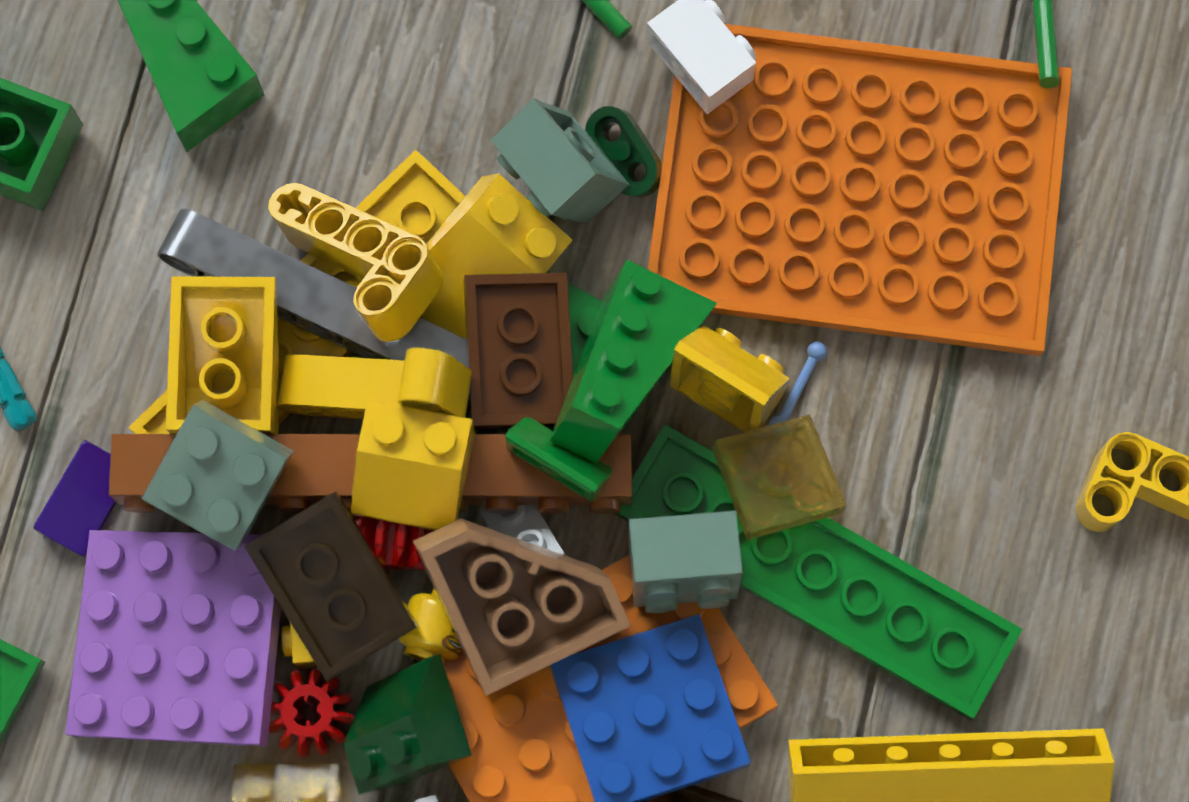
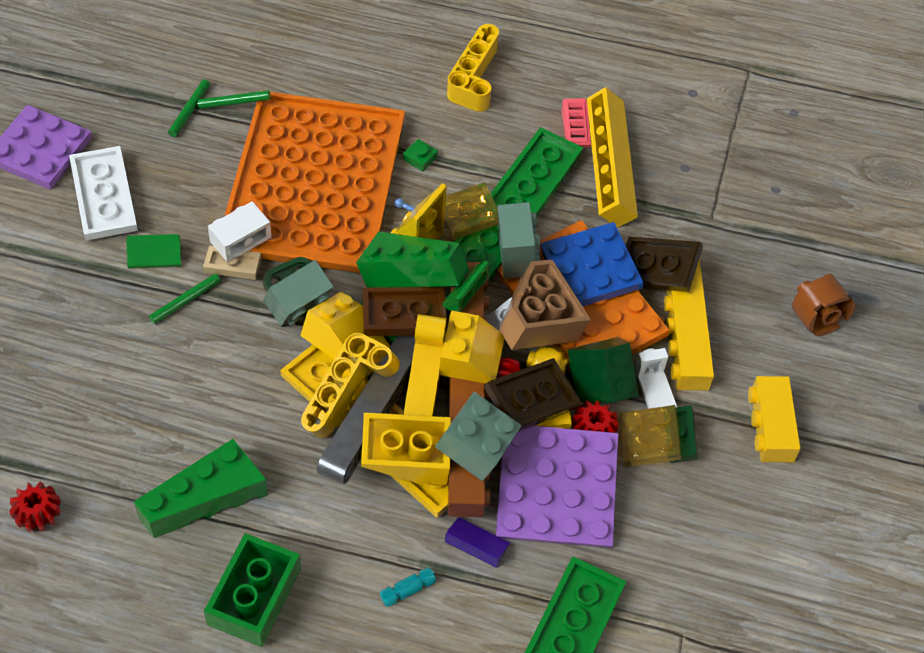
camera: 95 degrees left, 20 degrees down
(645, 73) = (243, 266): none -> tan plate
(941, 389) = (420, 155): none -> green plate
(1090, 698) = (576, 109): none -> coral slope

